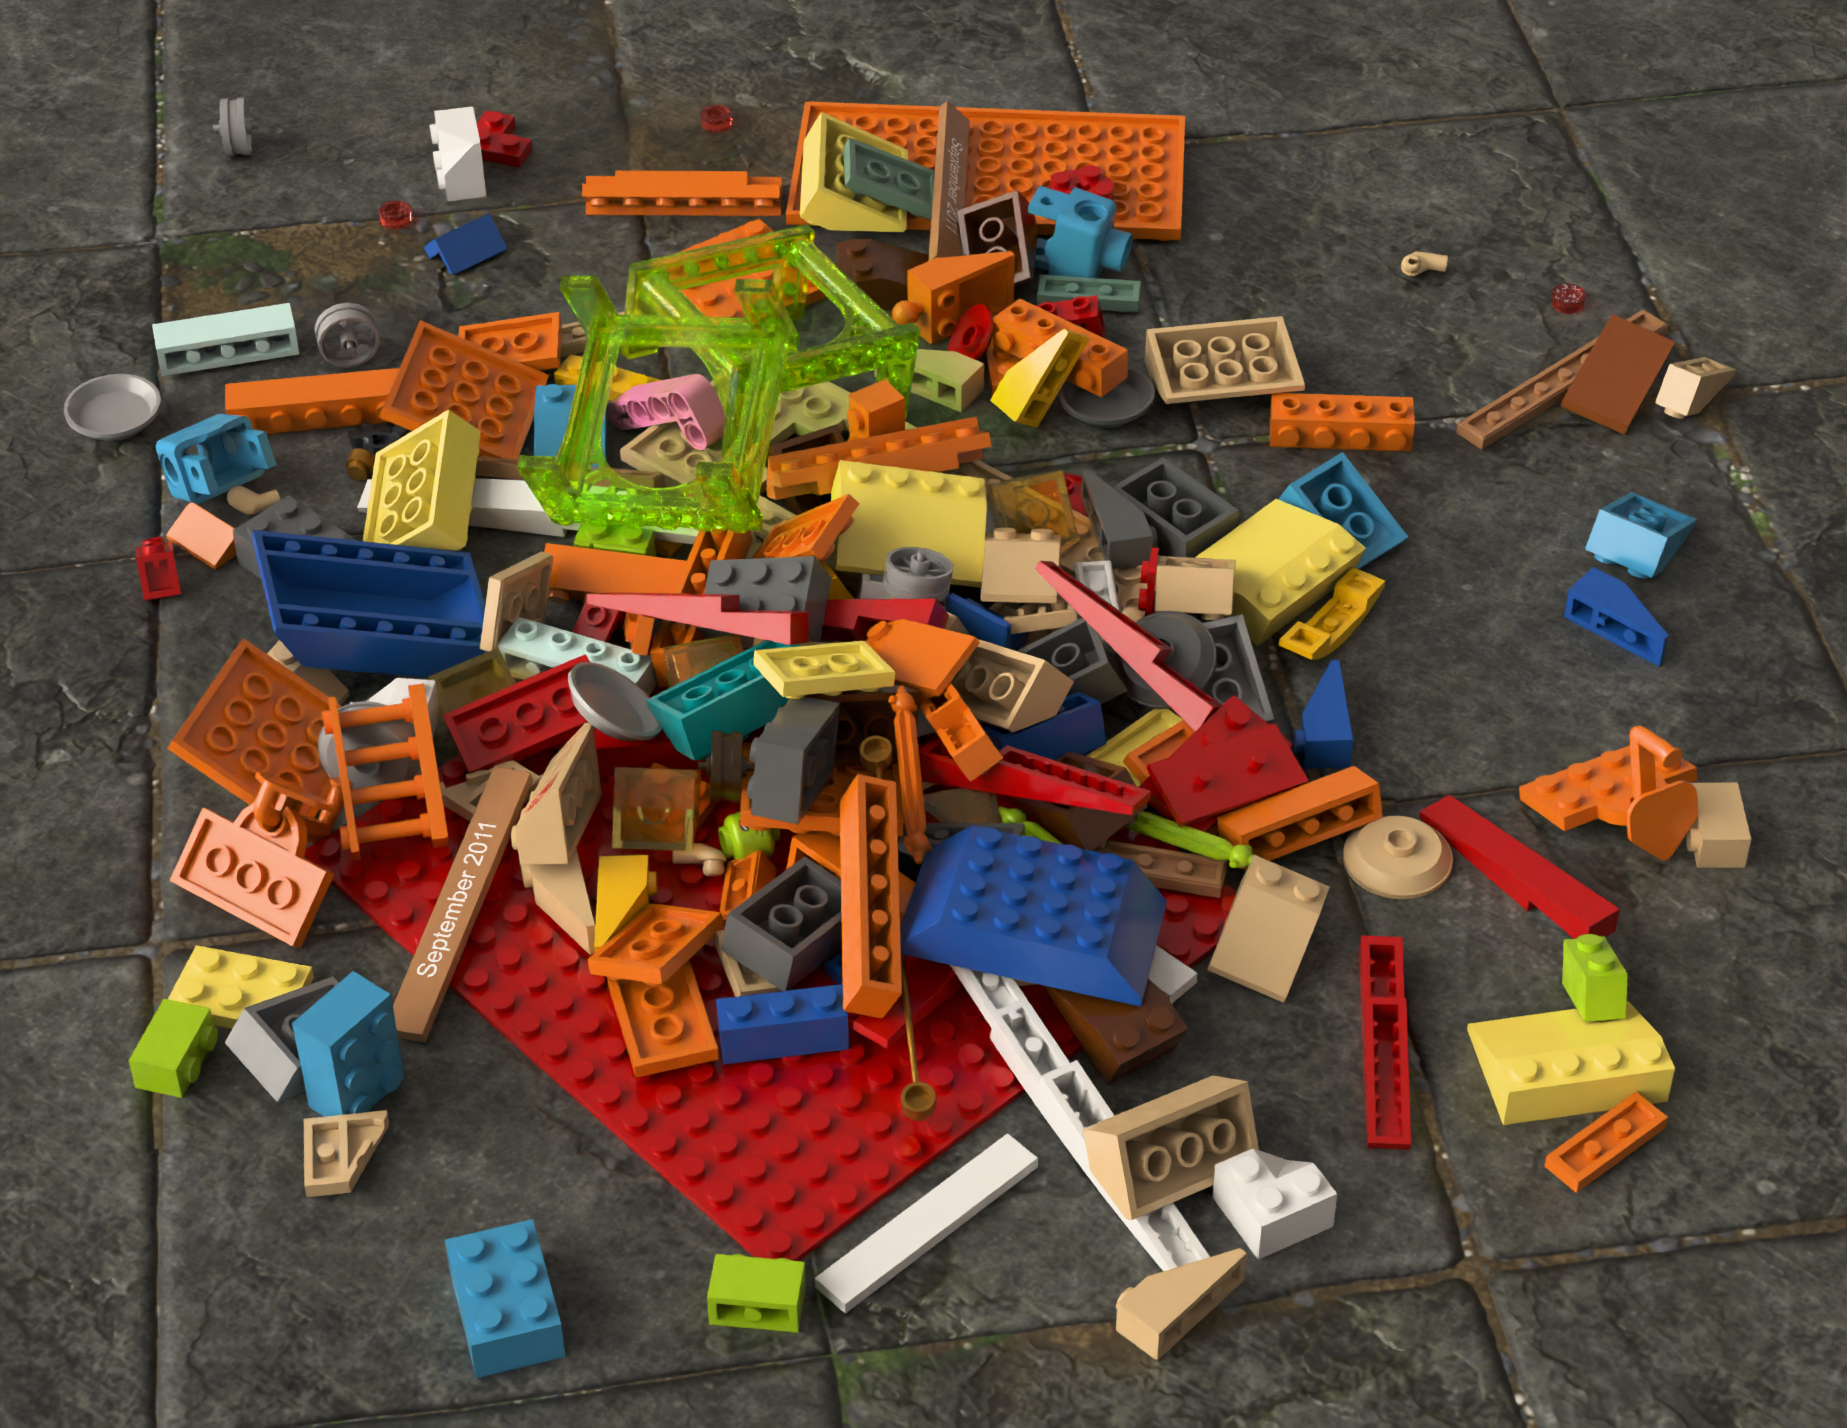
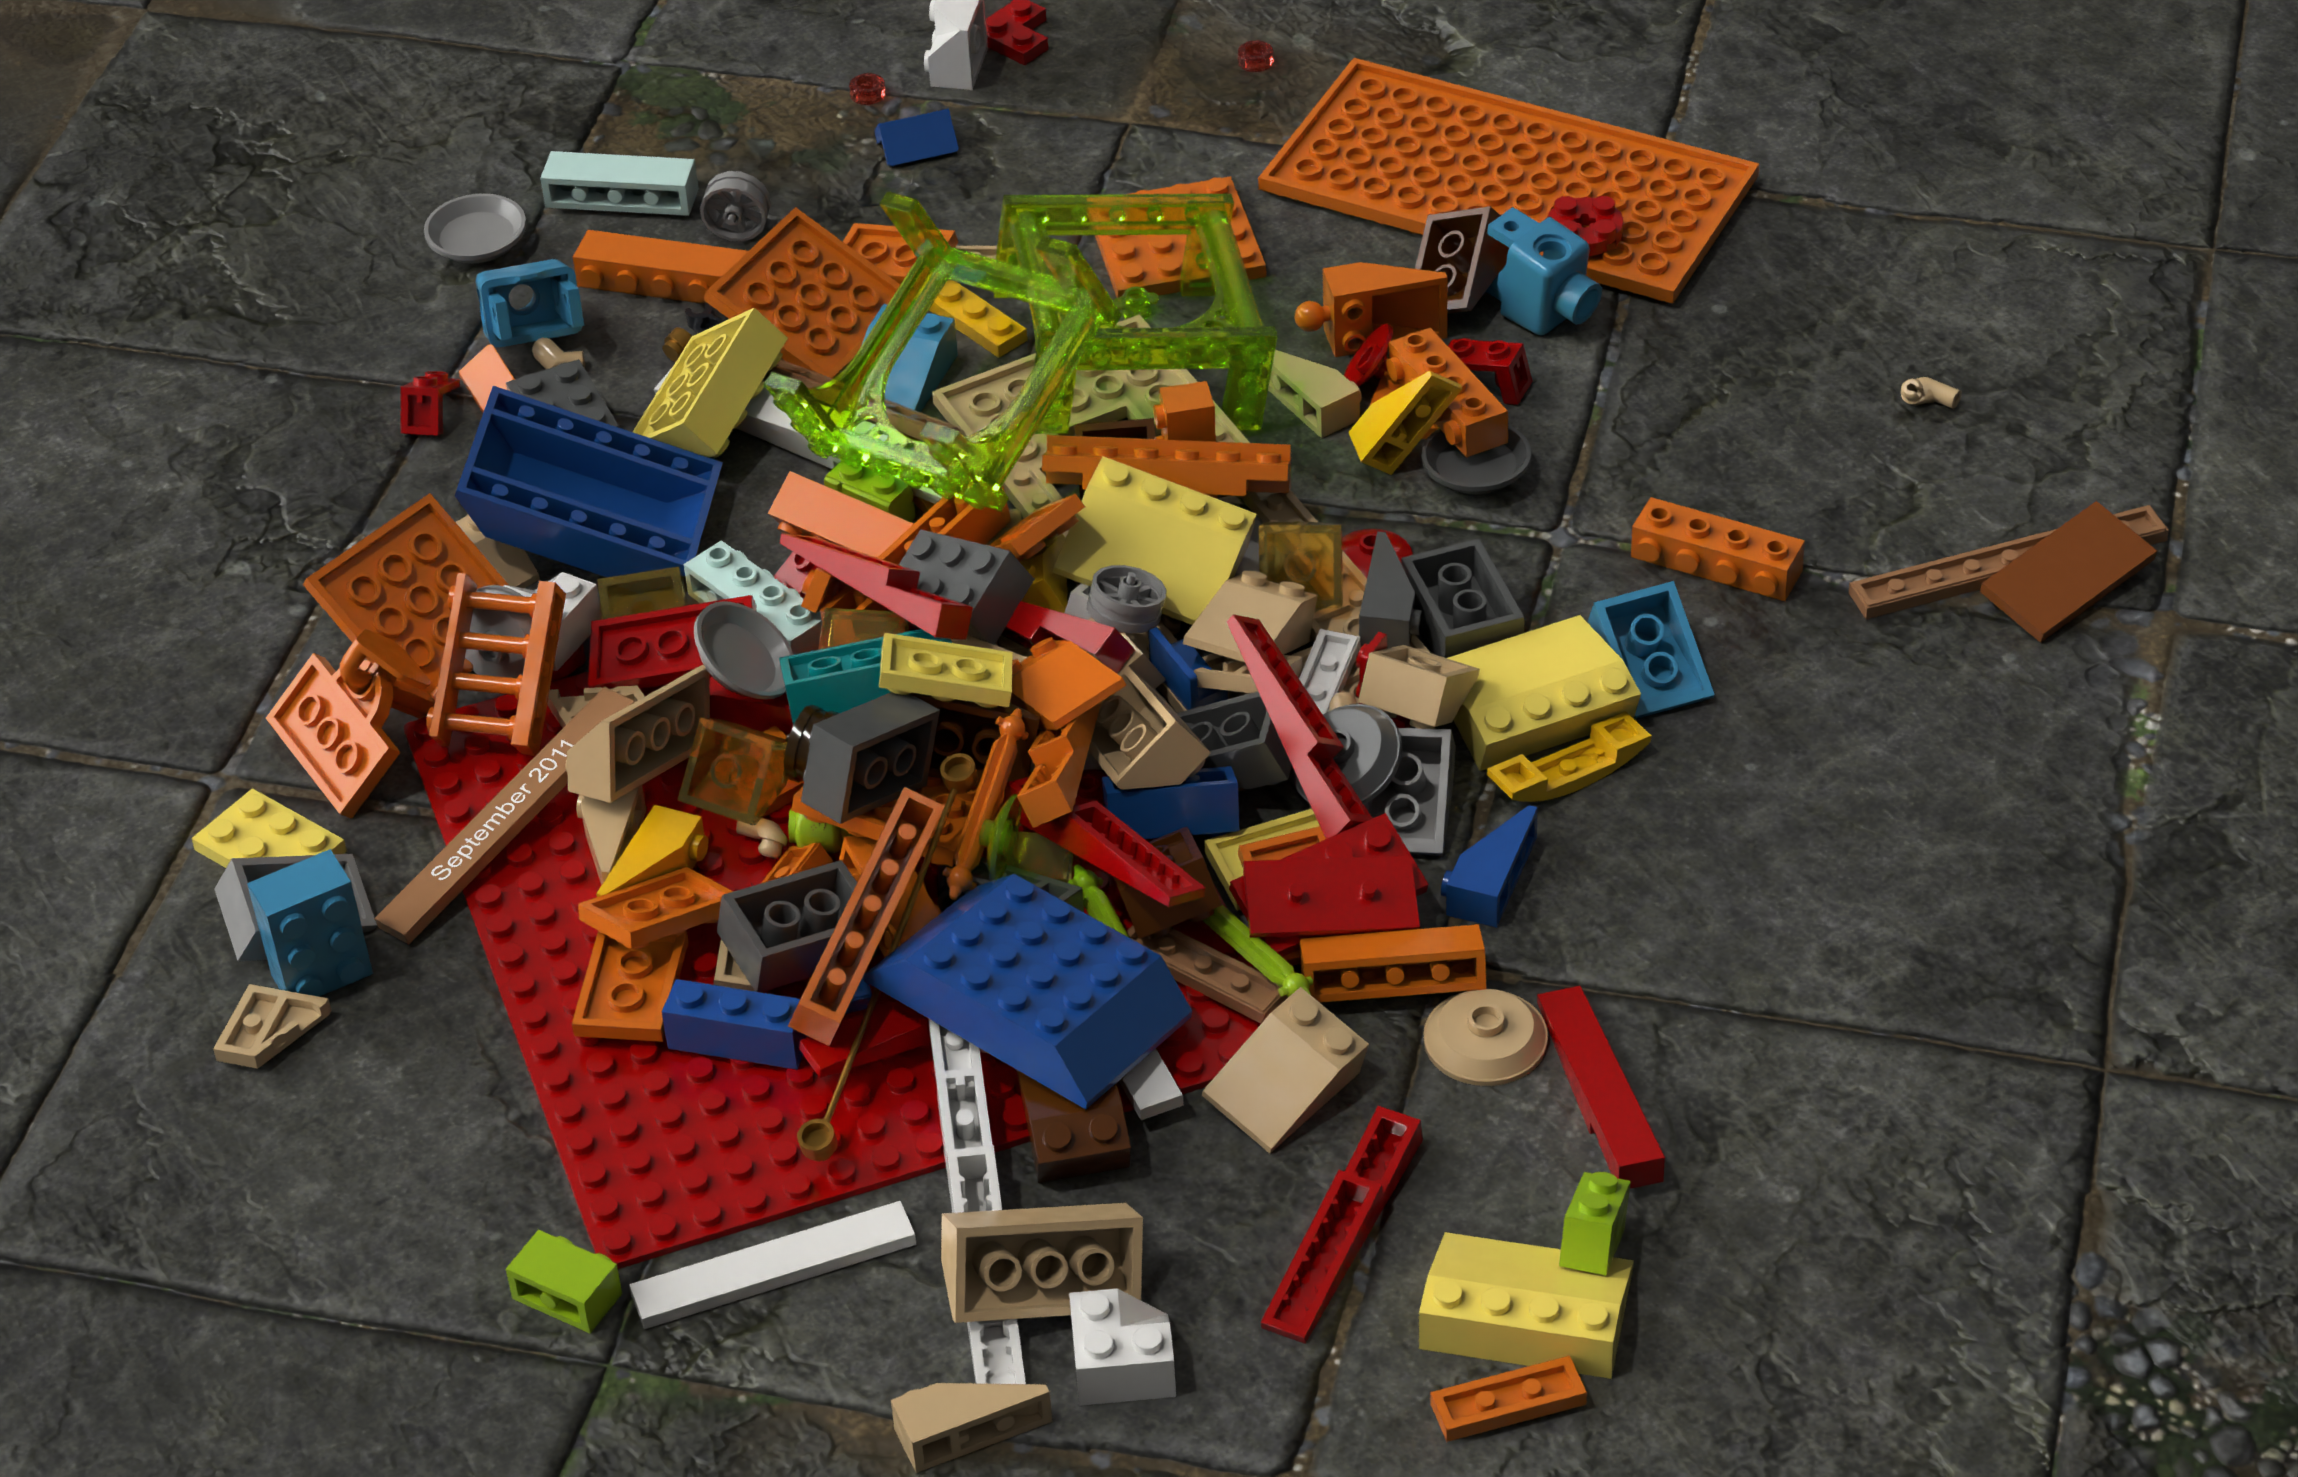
camera: 25 degrees right, 0 degrees up
(173, 1048) = (173, 881): lime brick -> none
(505, 1298) = (329, 1212): dark azure brick -> none
(514, 594) = (732, 513): tan tile -> none
(680, 399) = (997, 352): bright pink beam -> none
(683, 194) = (1167, 132): orange slope -> none
(823, 190) = (1344, 156): light yellow slope -> none
(878, 268) = (1302, 254): reddish brown slope -> none
(888, 178) = (1376, 164): sand green plate -> none
(943, 797) = (1000, 836): none -> clear neon green dish
(949, 182) = (1443, 181): medium nougat tile -> none
(1112, 293) = (1540, 341): sand green plate -> none
(1222, 360) = (1619, 448): tan slope -> none
(1568, 298) = (2072, 471): clear red tile -> none
(1616, 614) = (1882, 831): blue slope -> none
(1632, 787) = (1763, 1037): orange plate -> none
(1638, 534) = (1974, 756): dark azure slope -> none
(1692, 385) = (2147, 604): tan slope -> none
(1721, 828) = (1848, 1100): tan brick -> none

